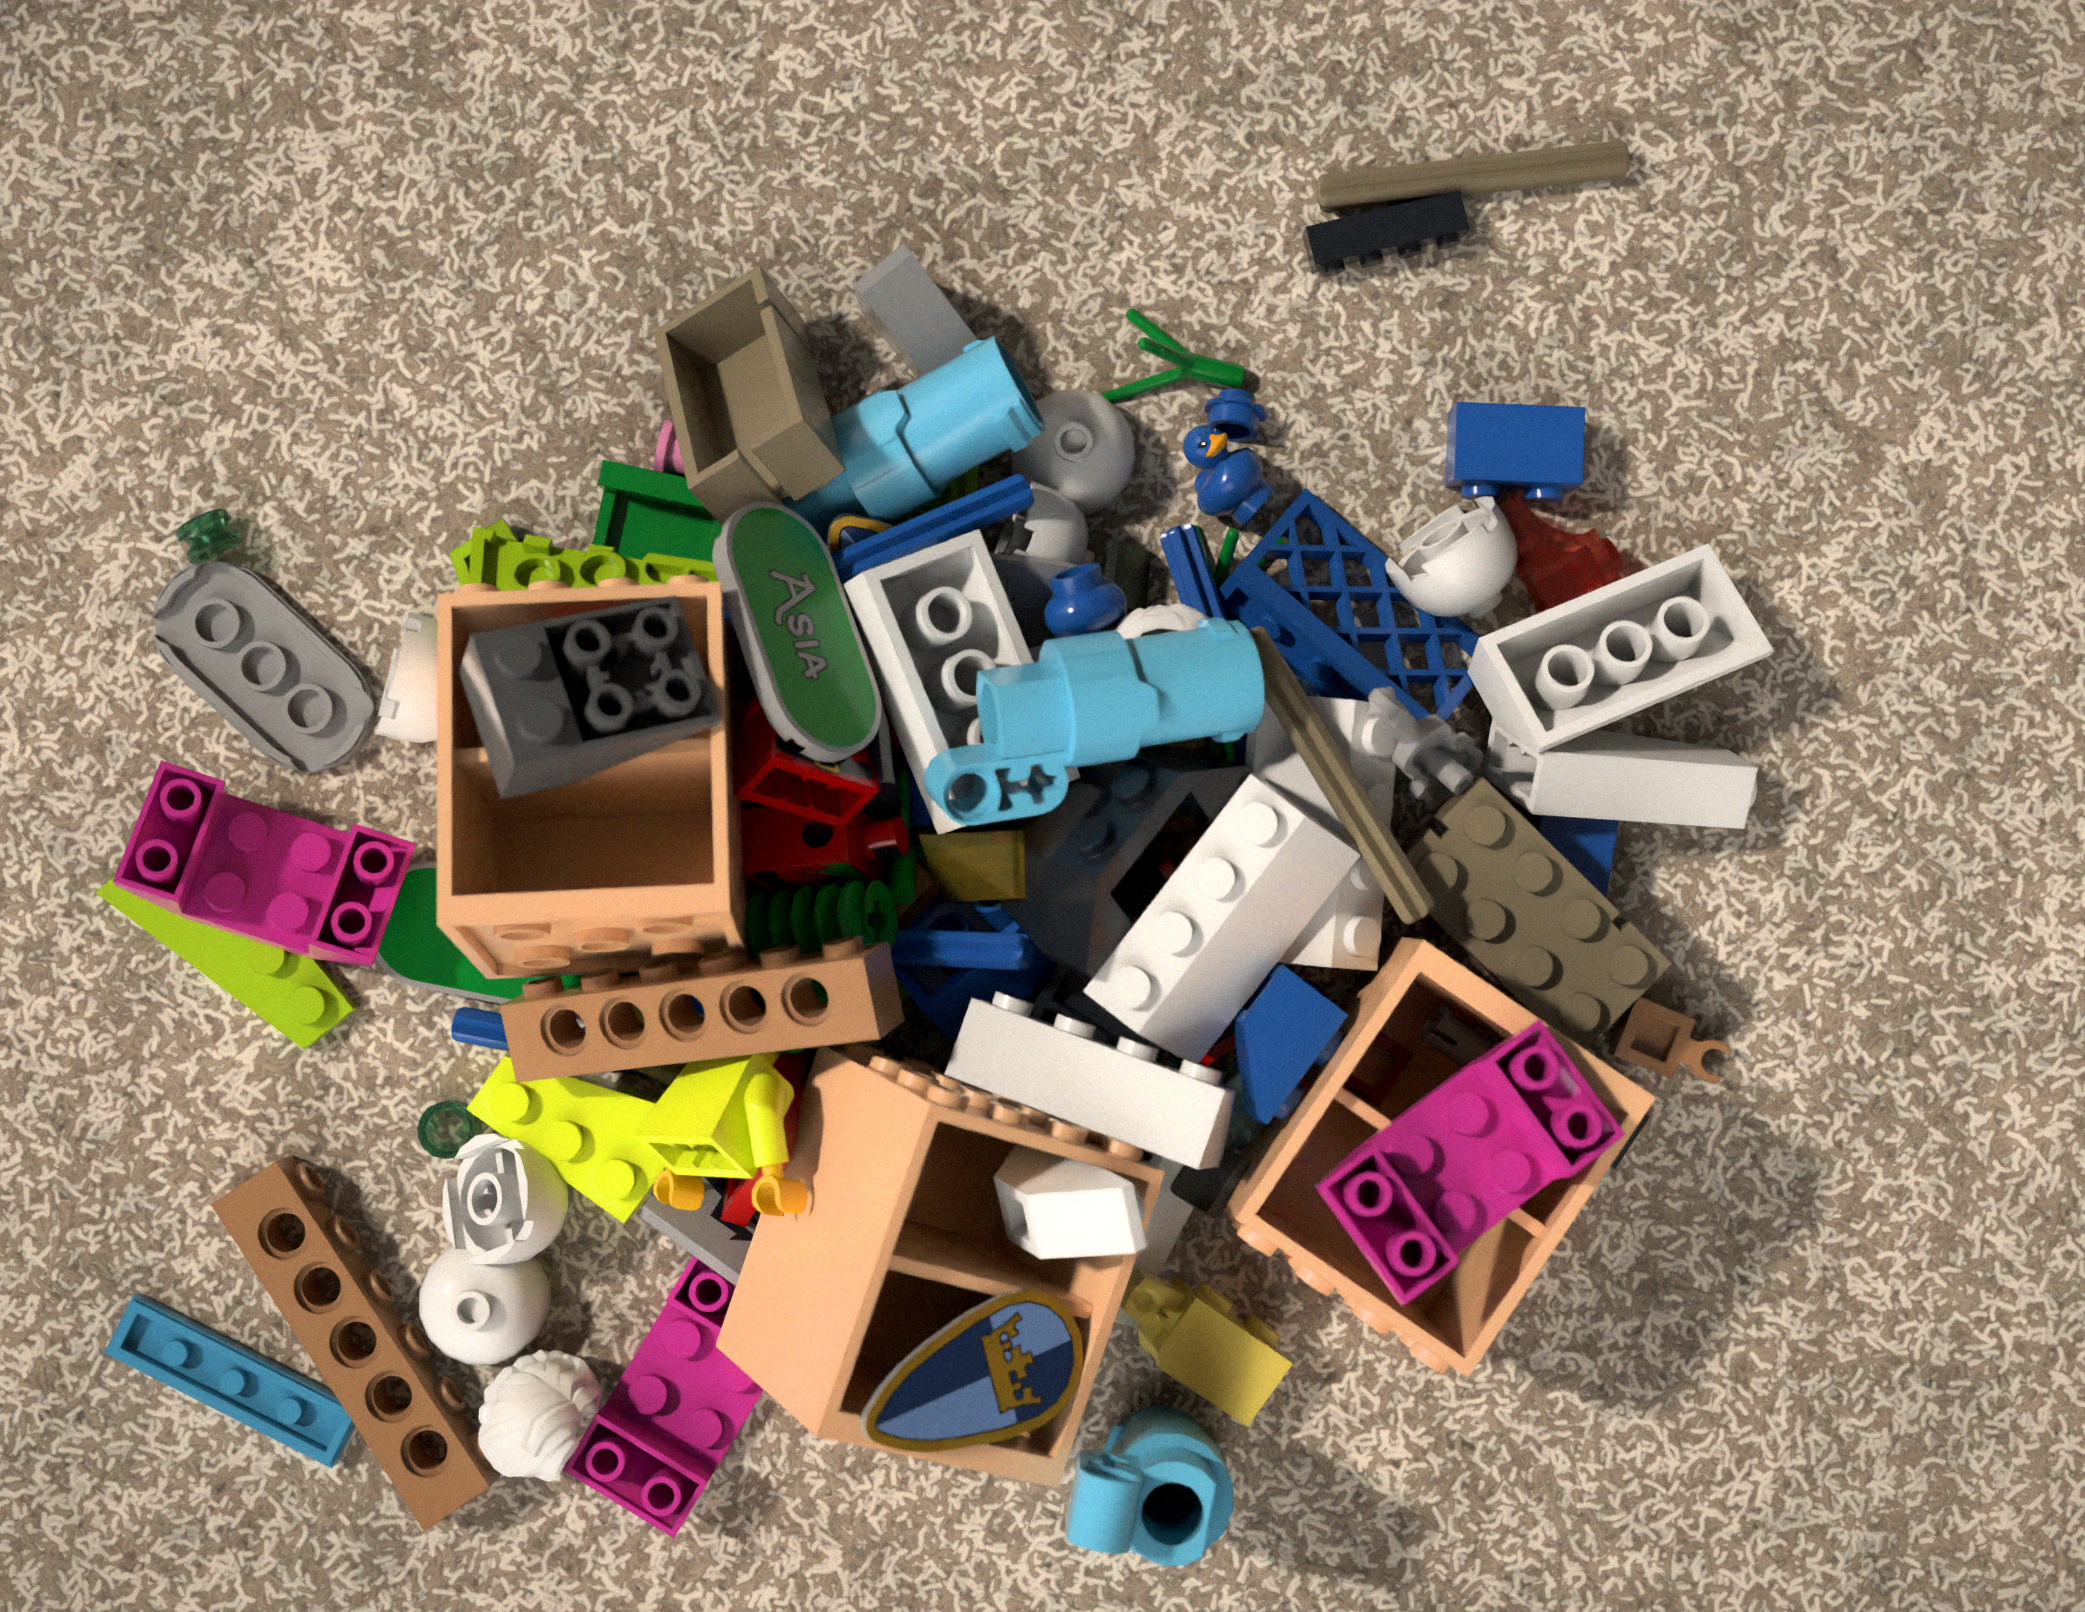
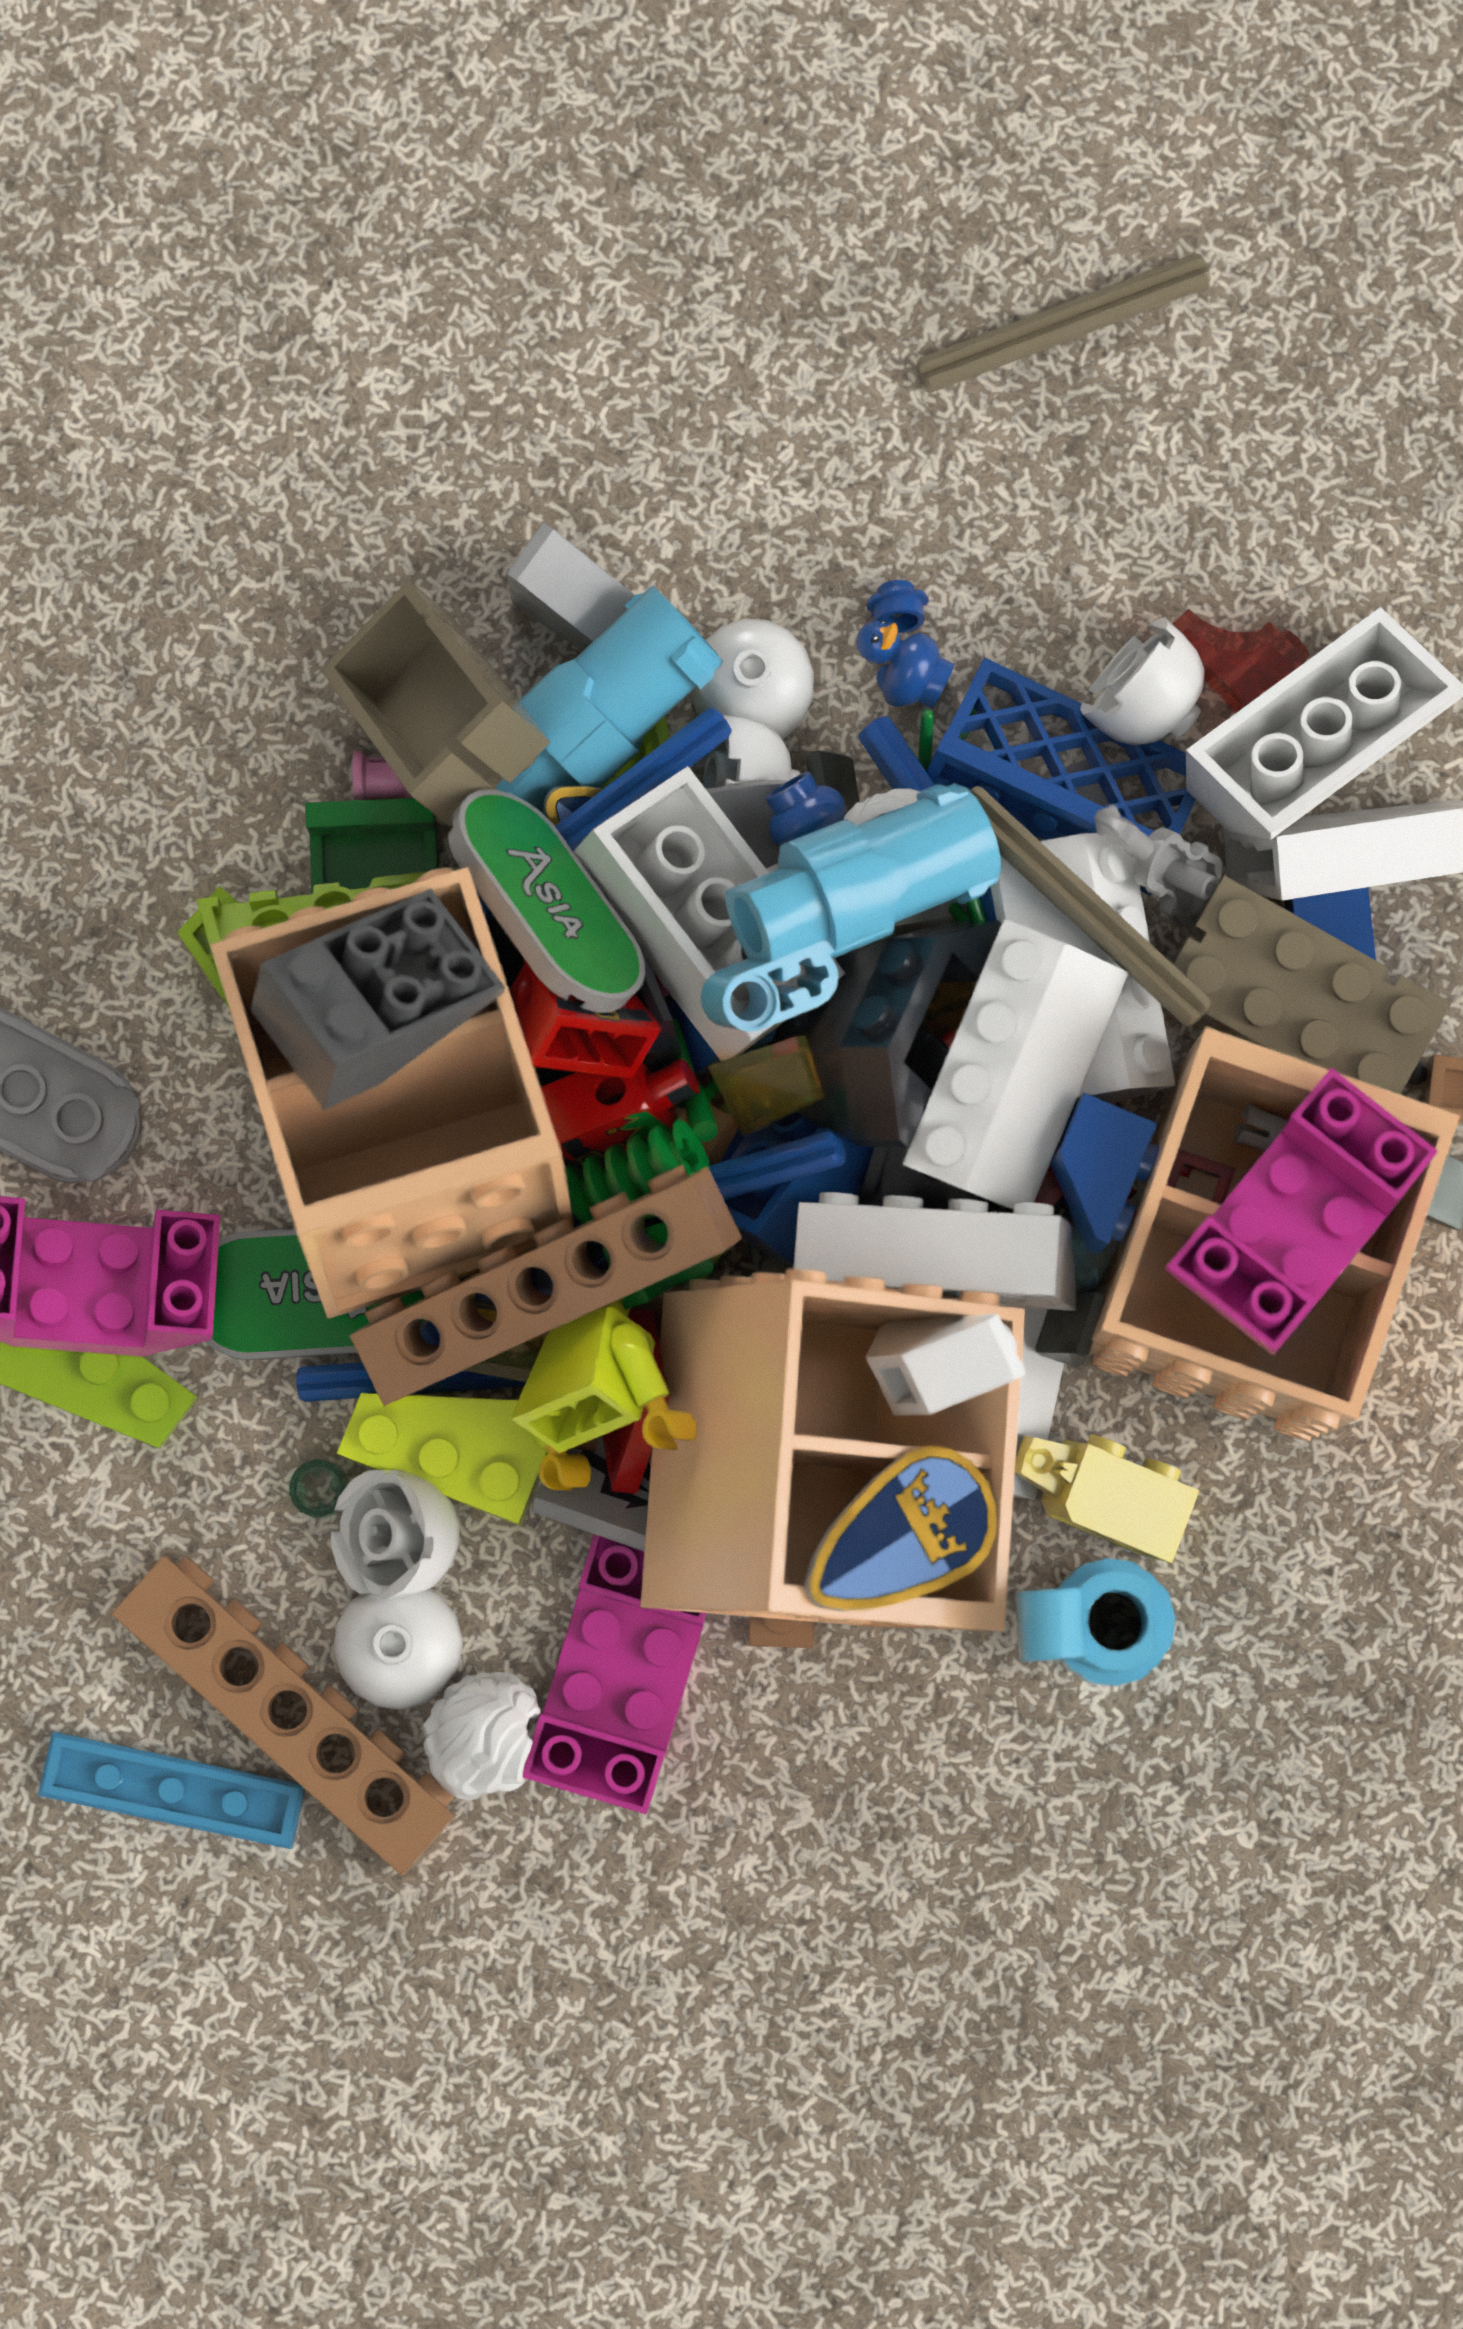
camera: 15 degrees left, 5 degrees down
(410, 691) = (189, 1059): white cylinder -> none
(1190, 364) = (841, 569): green plant -> none
(1385, 232) = (995, 396): black piece -> none
(1515, 450) = (1174, 569): blue brick -> none

